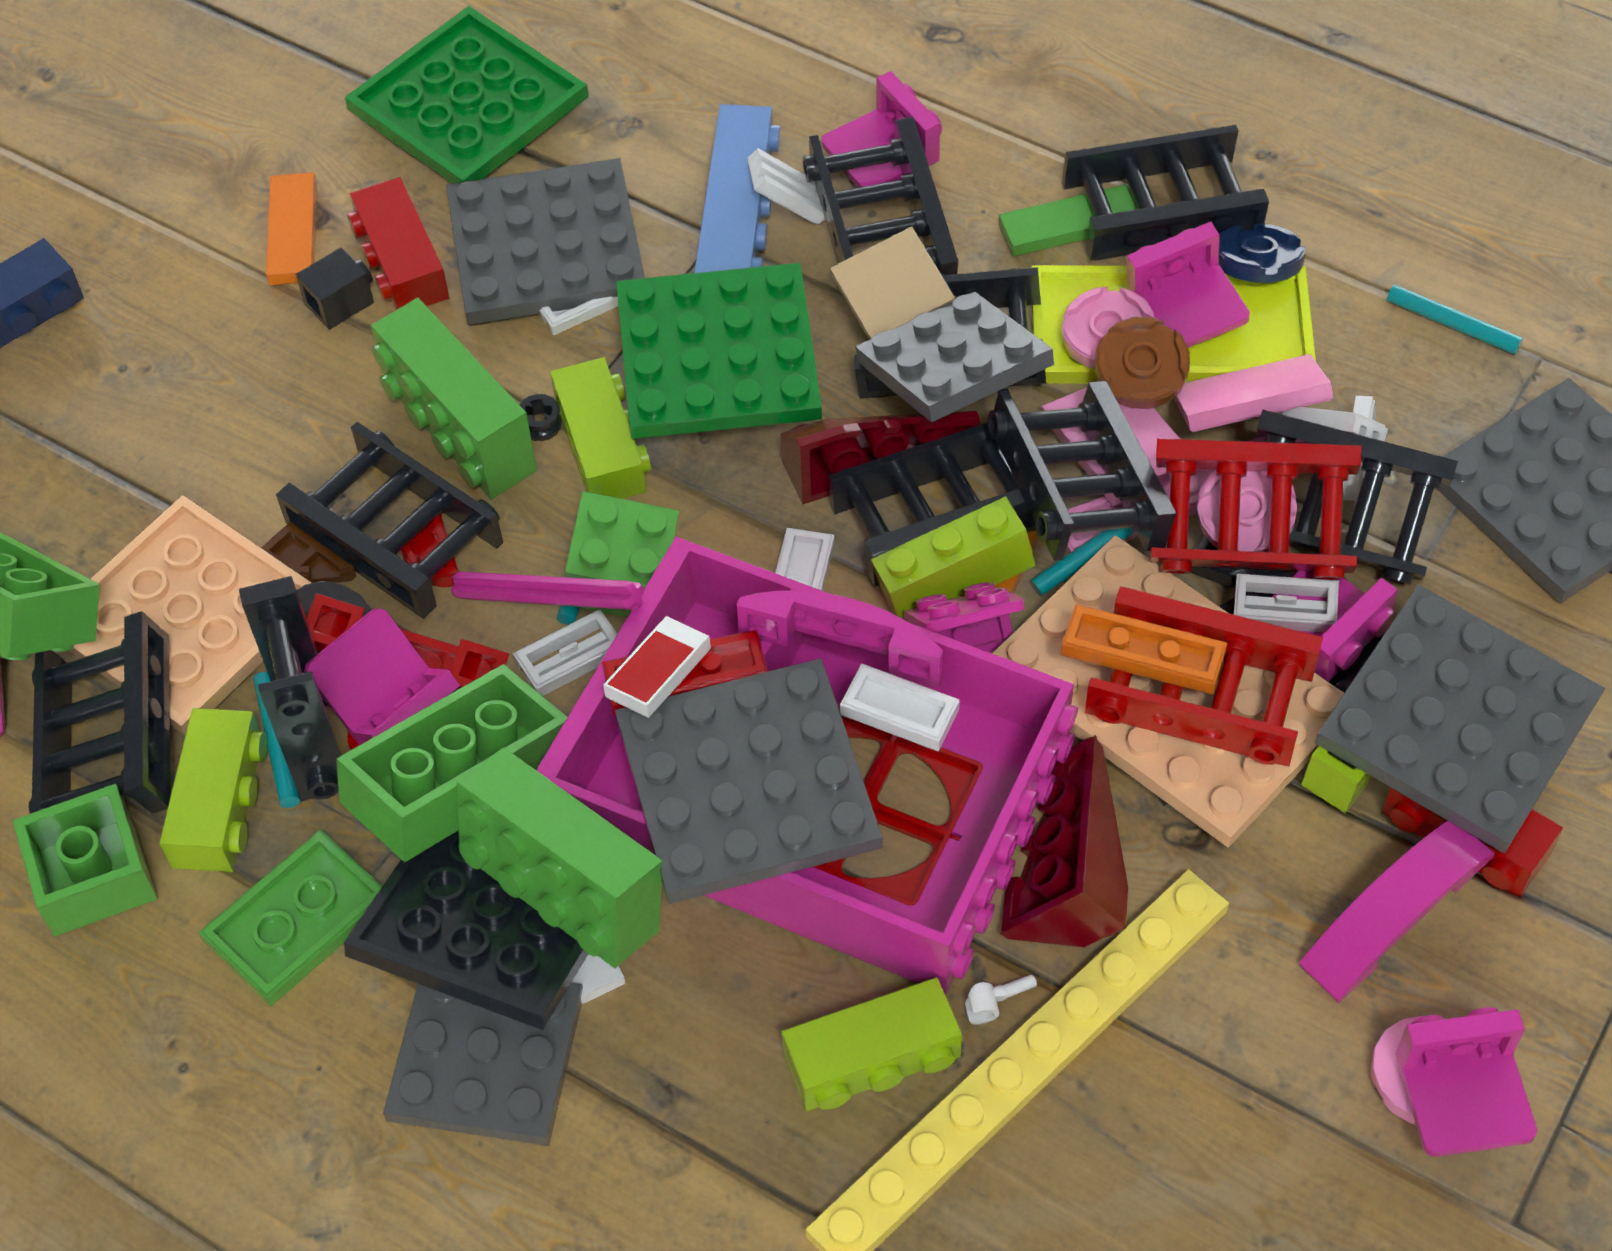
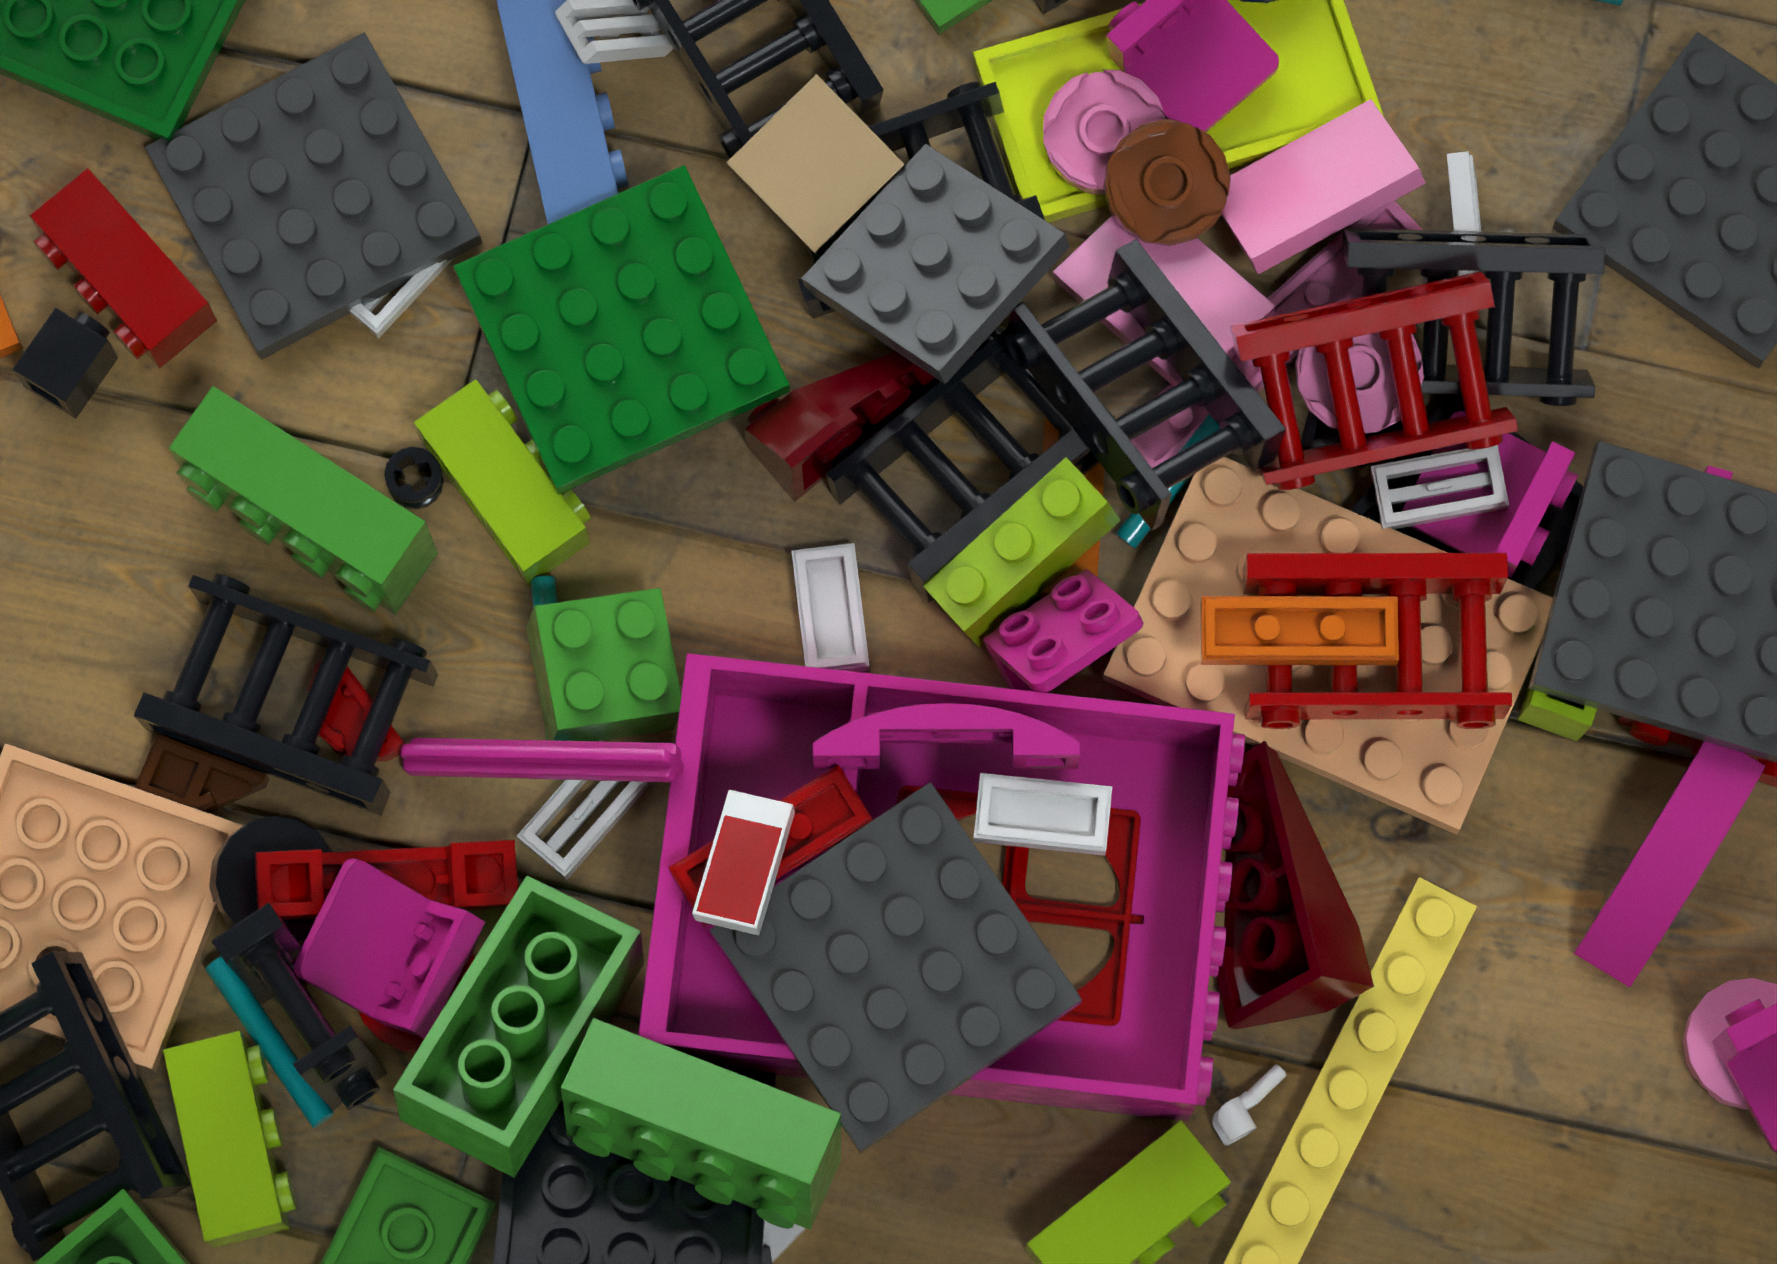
camera: 20 degrees left, 20 degrees up
(1341, 420) = (1438, 221): white tile -> none

